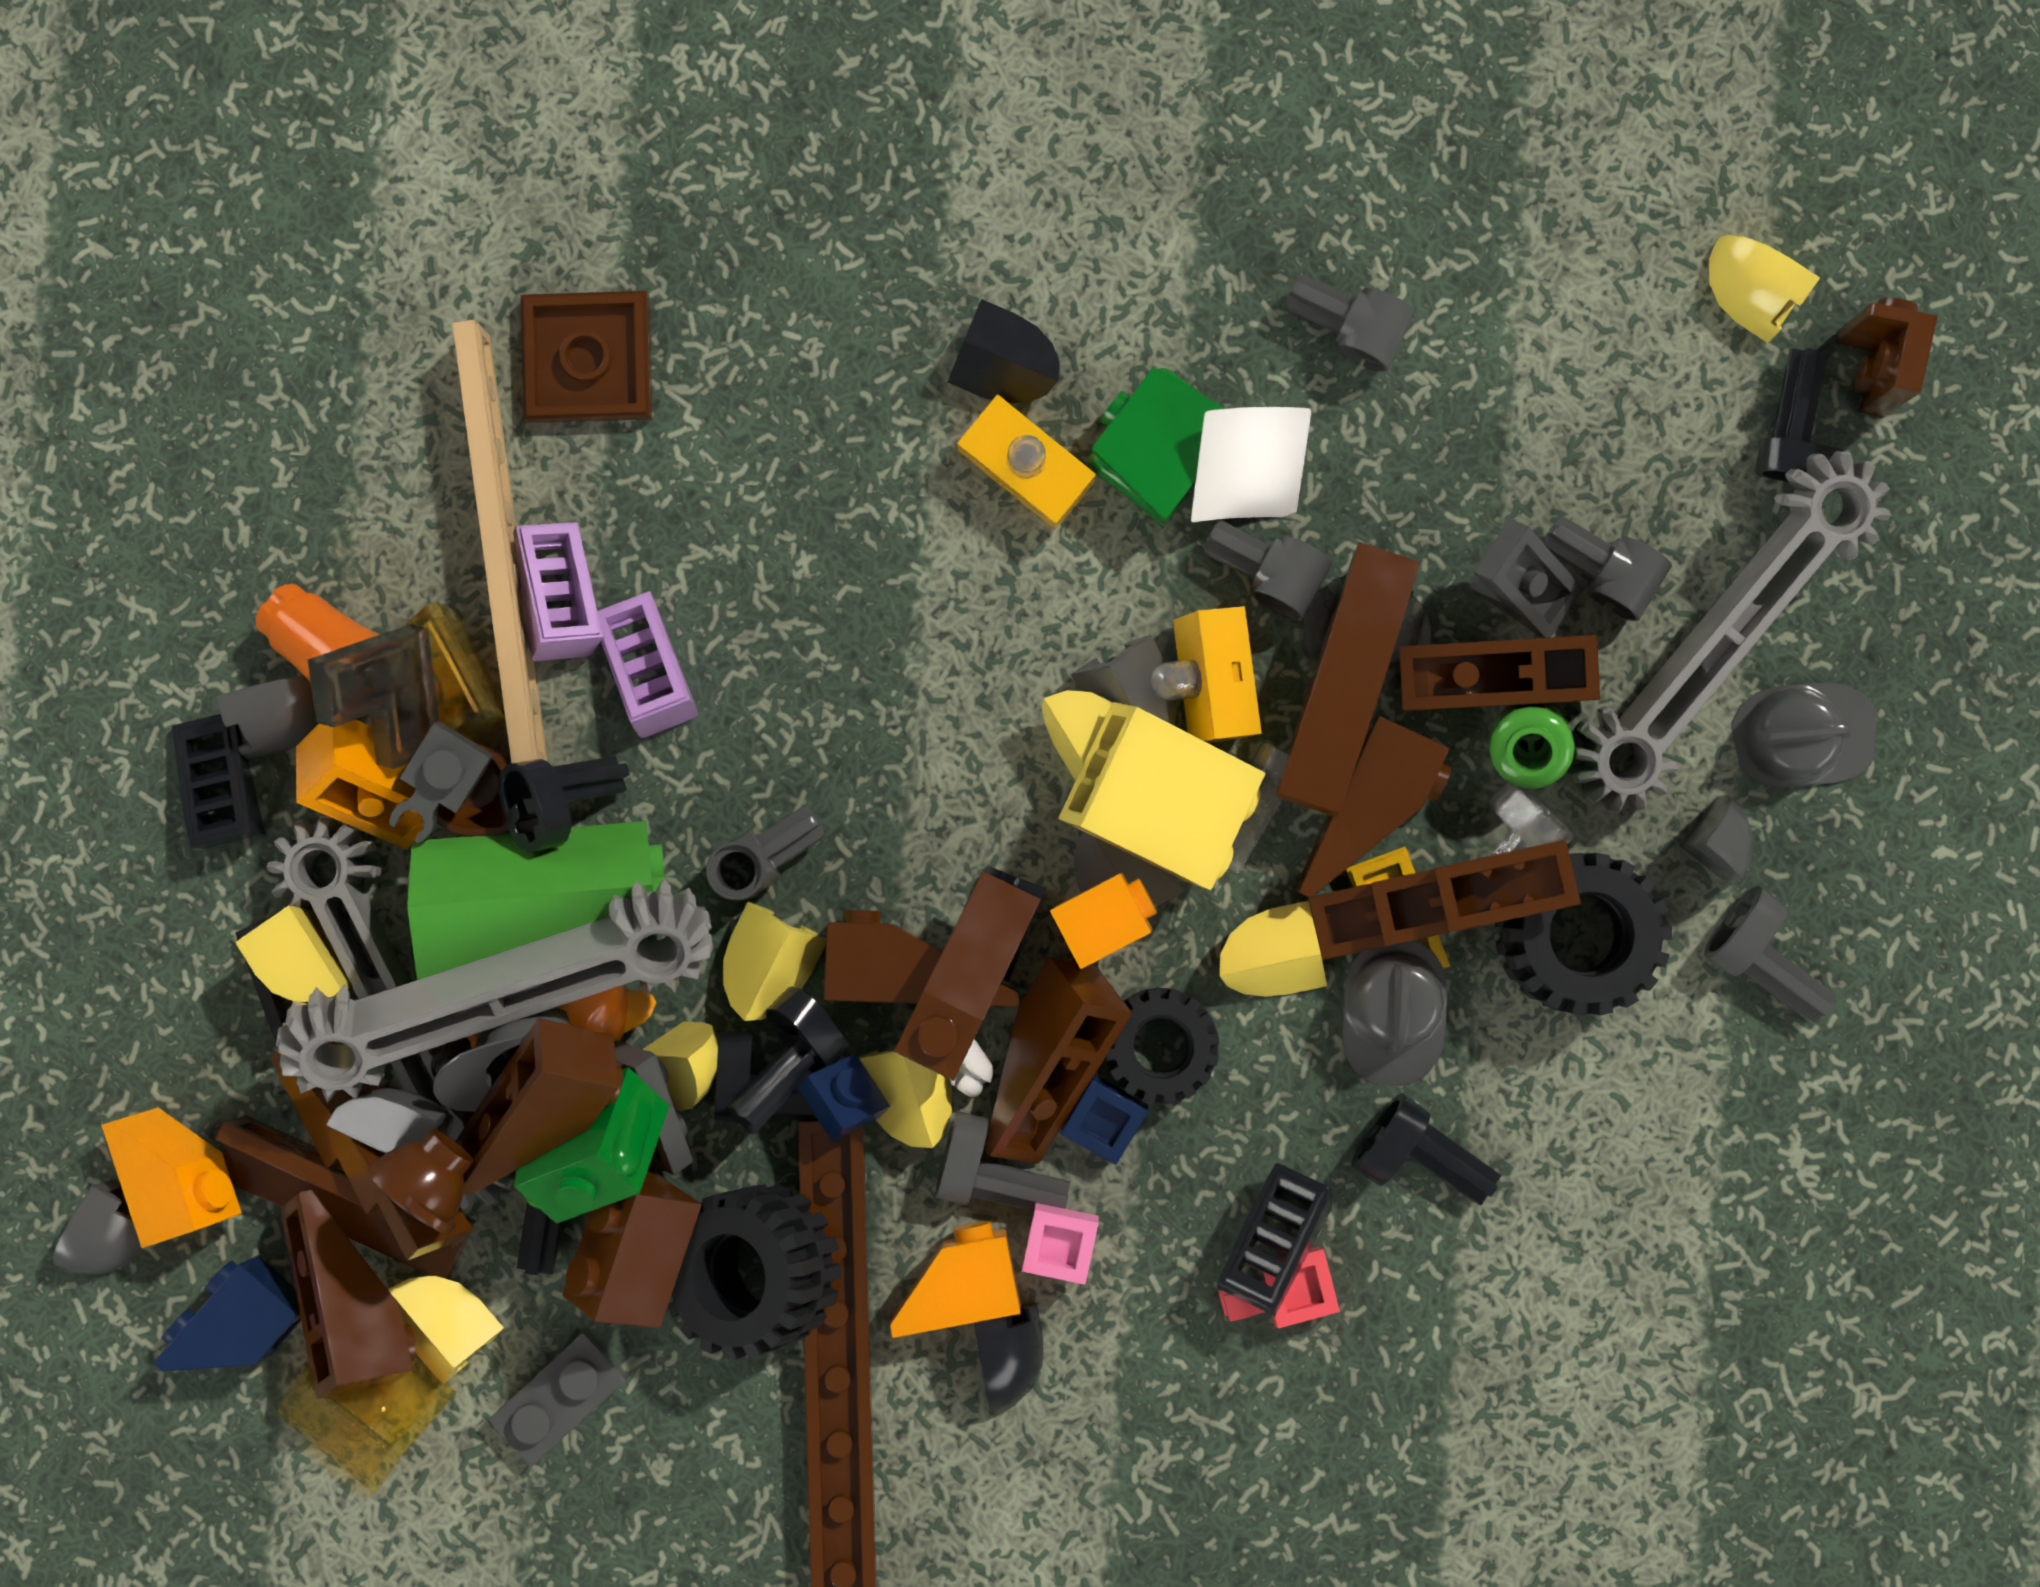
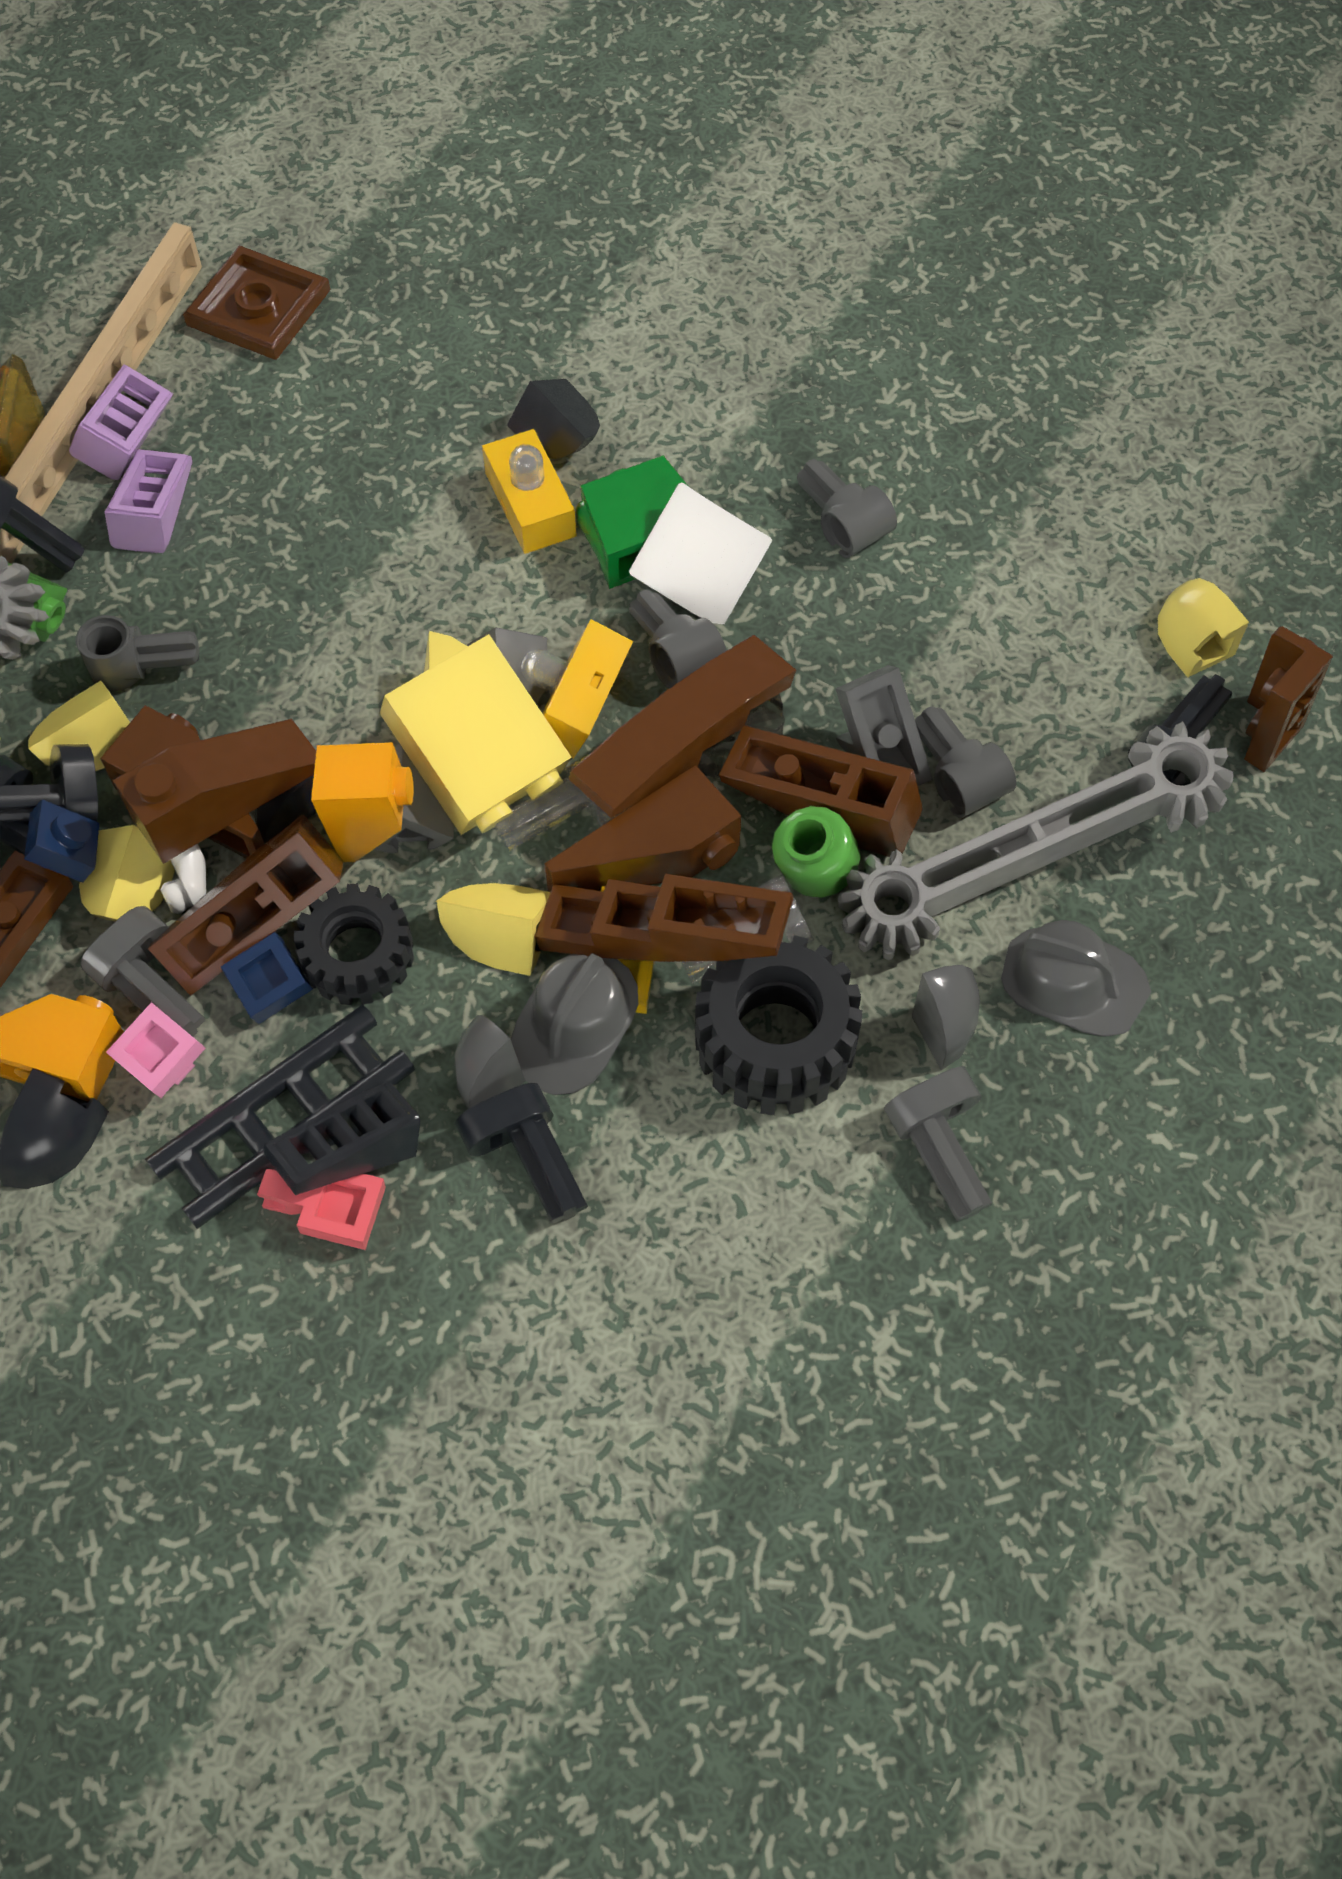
camera: 25 degrees right, 25 degrees down
(1202, 1268) = (239, 1113): none -> black bar
(1348, 1104) = (485, 1062): none -> dark grey brick

